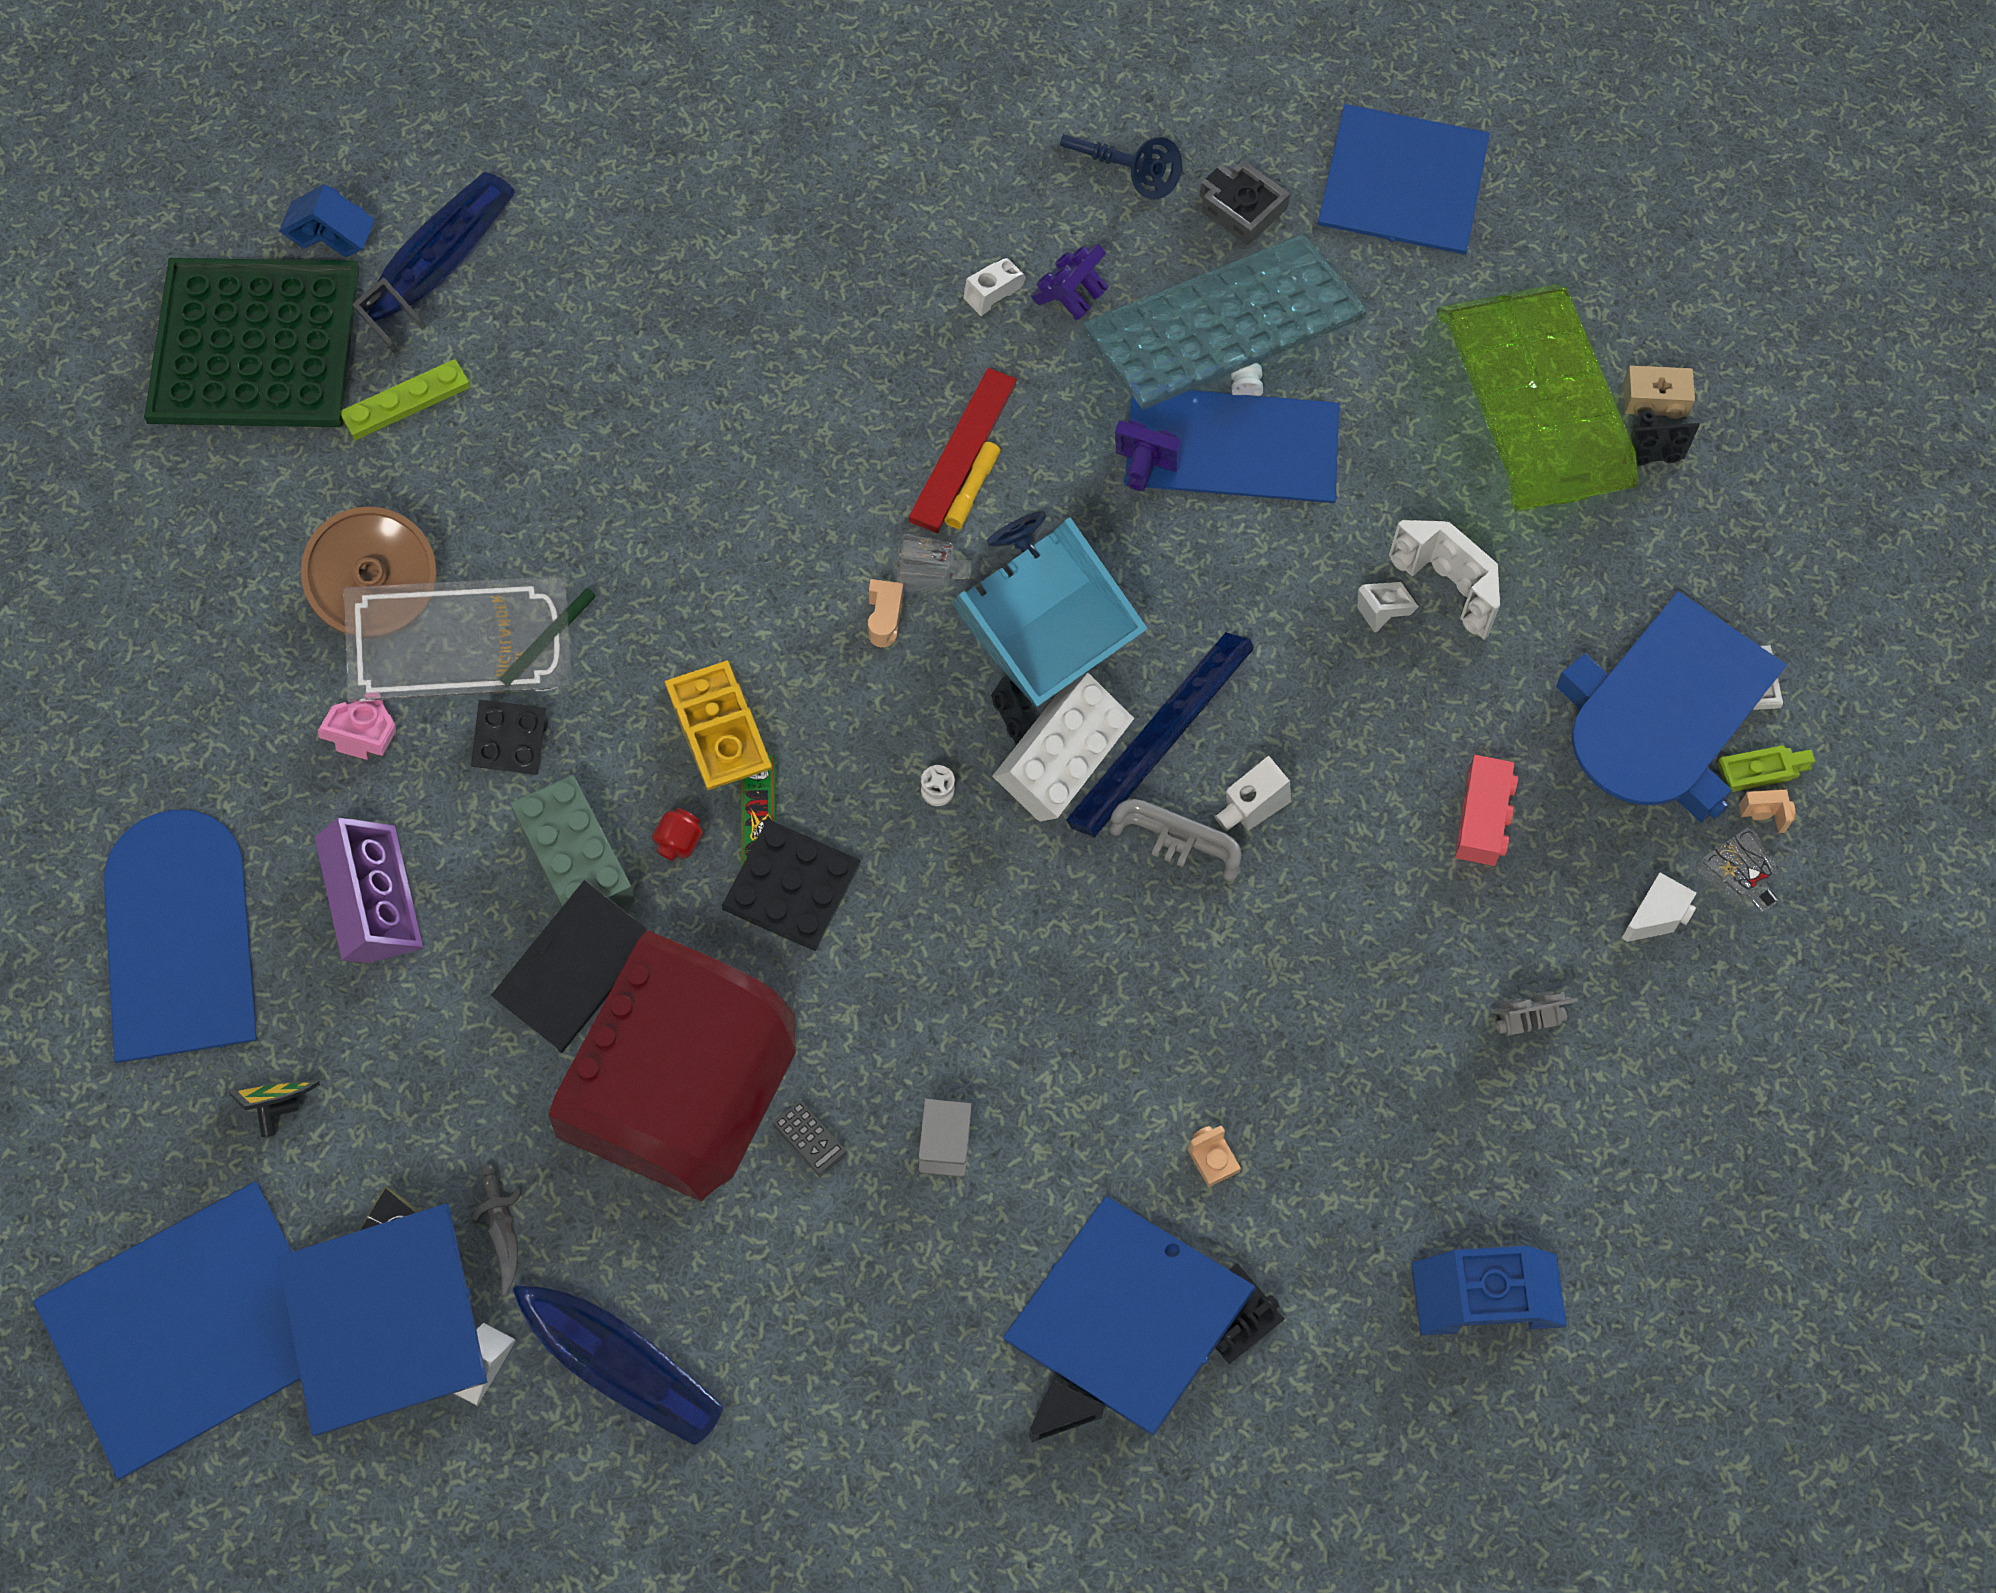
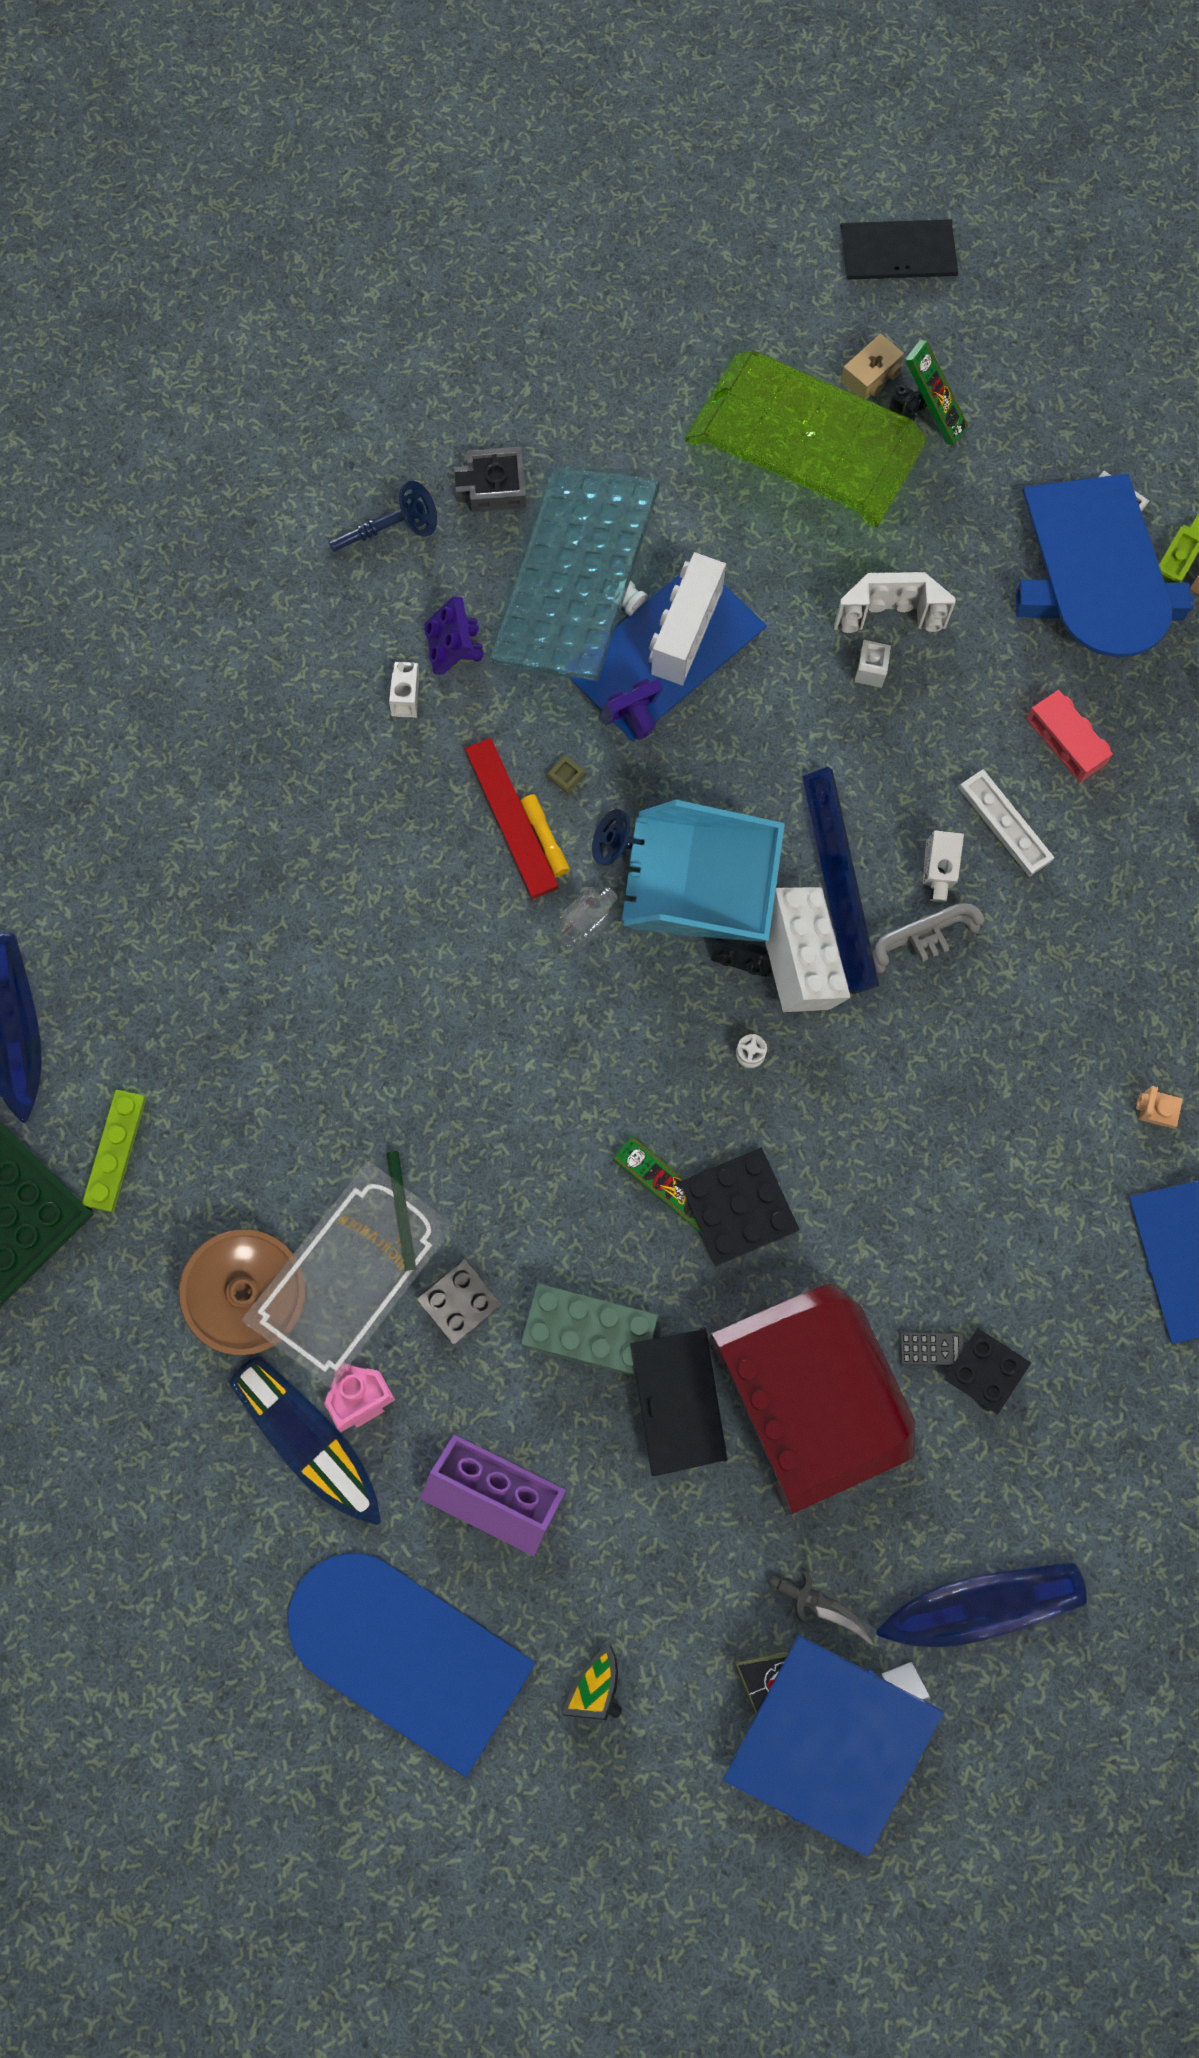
camera: 45 degrees left, 10 degrees up
(177, 1330) = (710, 1890): blue piece -> none
(290, 722) = (306, 1440): none -> clear blue piece
(372, 297) = (17, 1089): dark grey piece -> none
(677, 834) = (638, 1250): red head -> none
(718, 725) = (579, 1154): yellow slope -> none
(829, 1194) = (987, 1371): none -> black hinge
(885, 619) = (592, 972): light nougat leg -> none
(944, 1137) = (1011, 1263): light grey piece -> none
(1043, 459) = (566, 774): none -> olive tile
(1267, 429) = (687, 618): none -> white brick
(1350, 824) = (1006, 823): none -> white plate
(1404, 179) = (568, 369): blue piece -> none
(1678, 447) = (936, 392): none -> green tile
(1797, 328) = (892, 247): none -> black container

